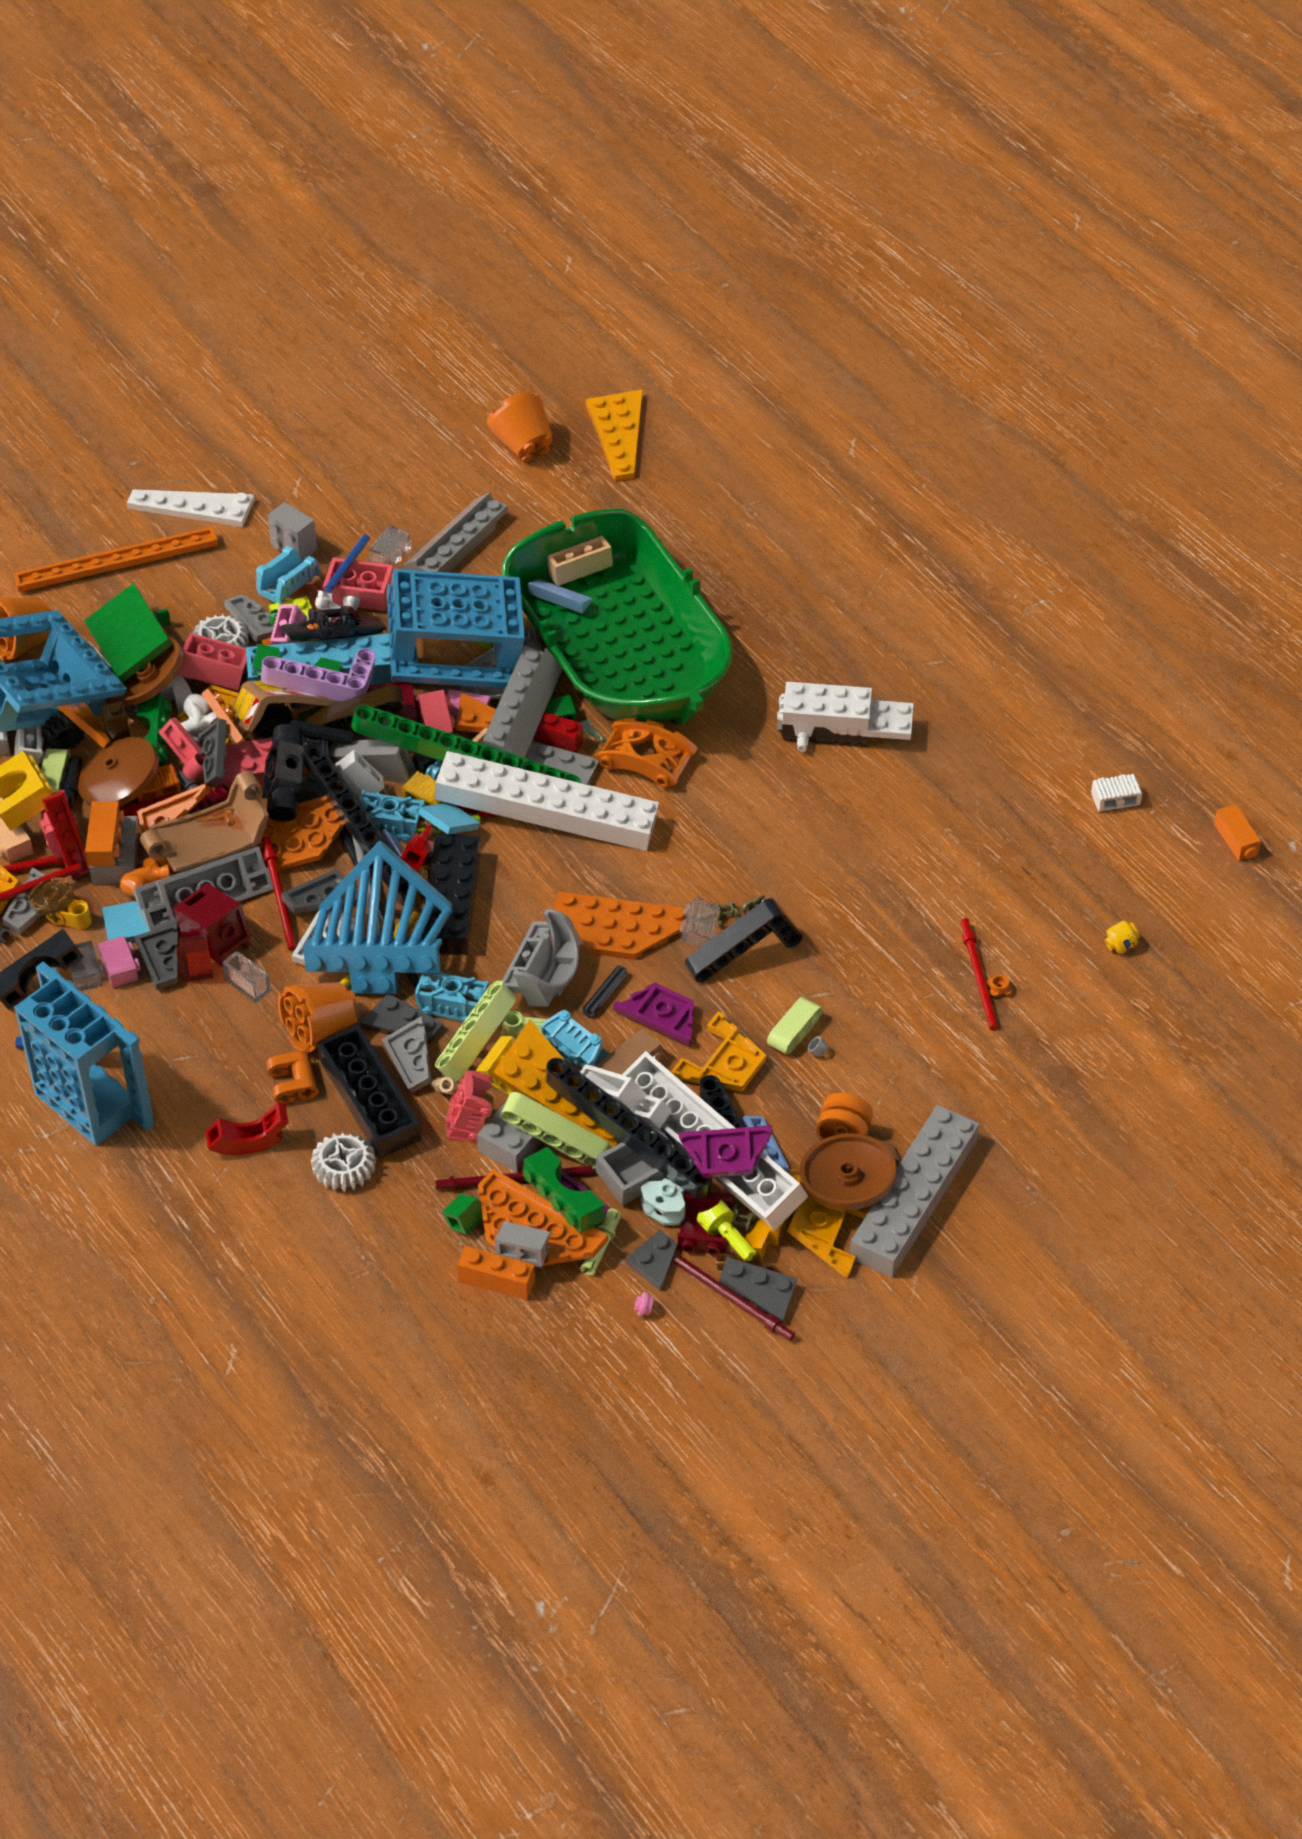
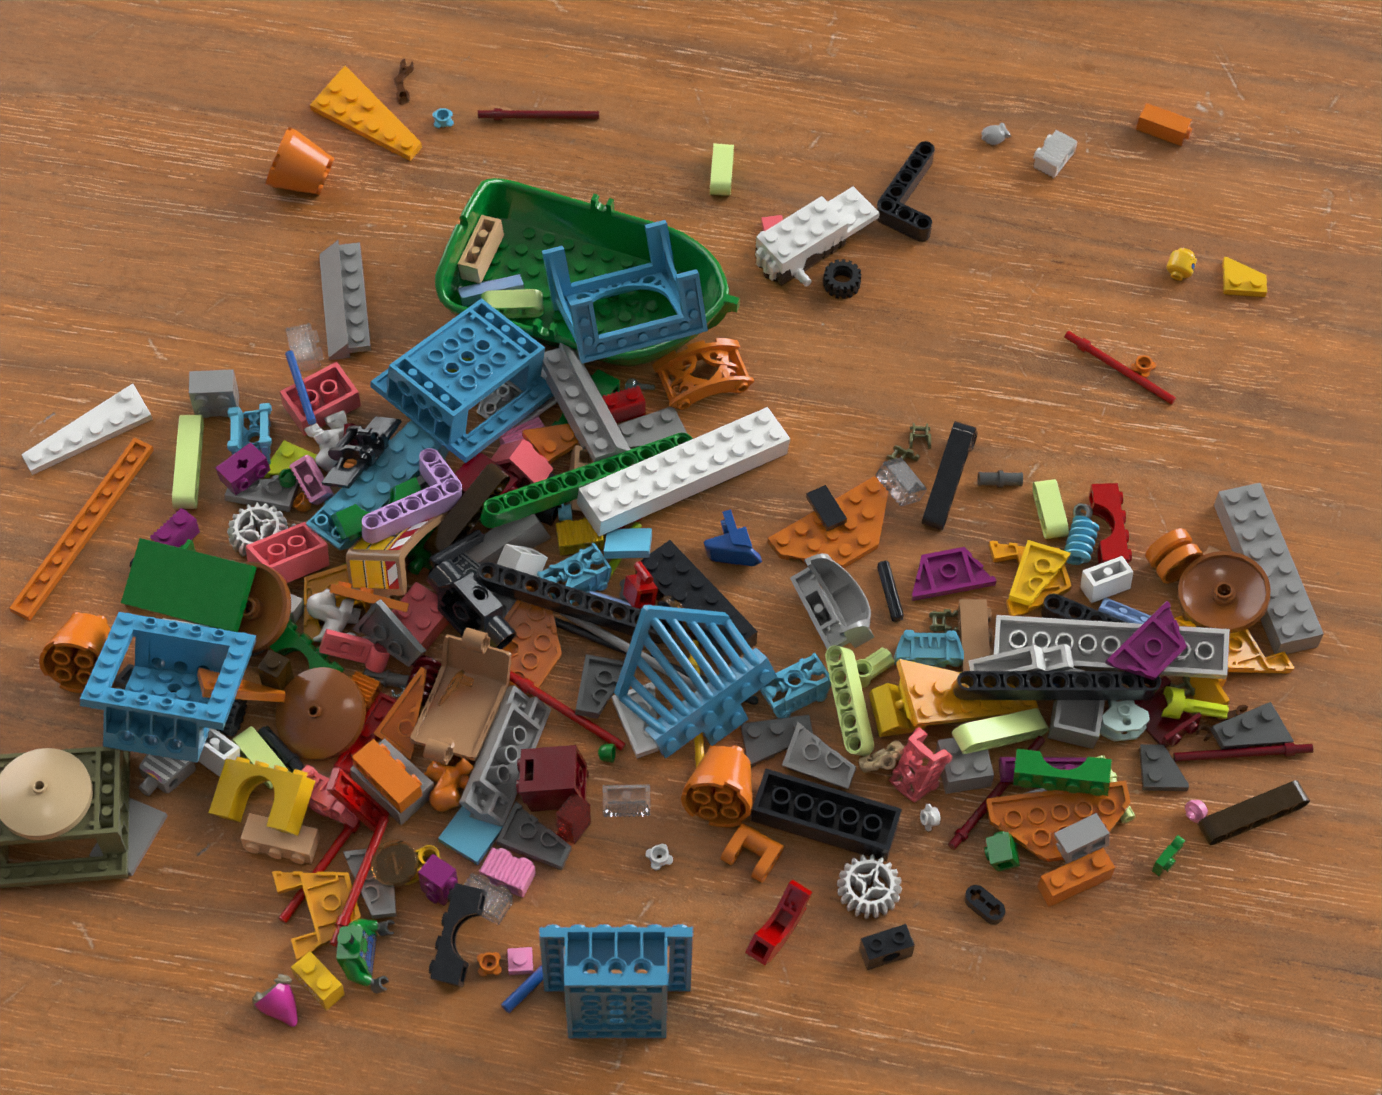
camera: 45 degrees left, 10 degrees up
(63, 917) = (437, 879): none -> magenta brick
(168, 597) = (177, 529): none -> magenta brick
(229, 565) = (188, 462): none -> yellowish green beam
(229, 1026) = (662, 850): none -> white plate
(251, 589) = (243, 469): none -> magenta brick
(276, 942) = (607, 752): none -> green hinge
(305, 1206) = (886, 947): none -> black brick
(416, 1239) = (984, 904): none -> black beam
(442, 1152) = (930, 817): none -> white plate
(523, 871) = (733, 546): none -> blue piece
(560, 612) = (516, 303): none -> yellowish green beam
(561, 656) = (577, 299): none -> dark azure arch
(580, 1315) = (1166, 860): none -> green plate
(616, 1031) = (942, 615): none -> olive piece
(621, 899) = (826, 508): none -> black tile
(670, 467) = (443, 118): none -> medium azure plate
(682, 420) = (404, 71): none -> reddish brown piece
(687, 1340) = (1253, 812): none -> dark brown beam
(715, 491) = (498, 114): none -> dark red bar
(722, 1053) = (1035, 571): none -> yellow wing
(772, 1100) = (1106, 579): none -> white brick
(782, 978) = (1000, 478): none -> dark grey pin
(787, 1061) = (1081, 540): none -> medium azure piece
(807, 1088) = (1106, 503): none -> red arch
(832, 773) = (838, 288): none -> black tyre
(833, 631) = (721, 169): none -> yellowish green beam
(936, 739) = (892, 205): none -> black beam
(1085, 748) = (995, 134): none -> light grey animal
(1164, 986) = (1242, 280): none -> yellow wing

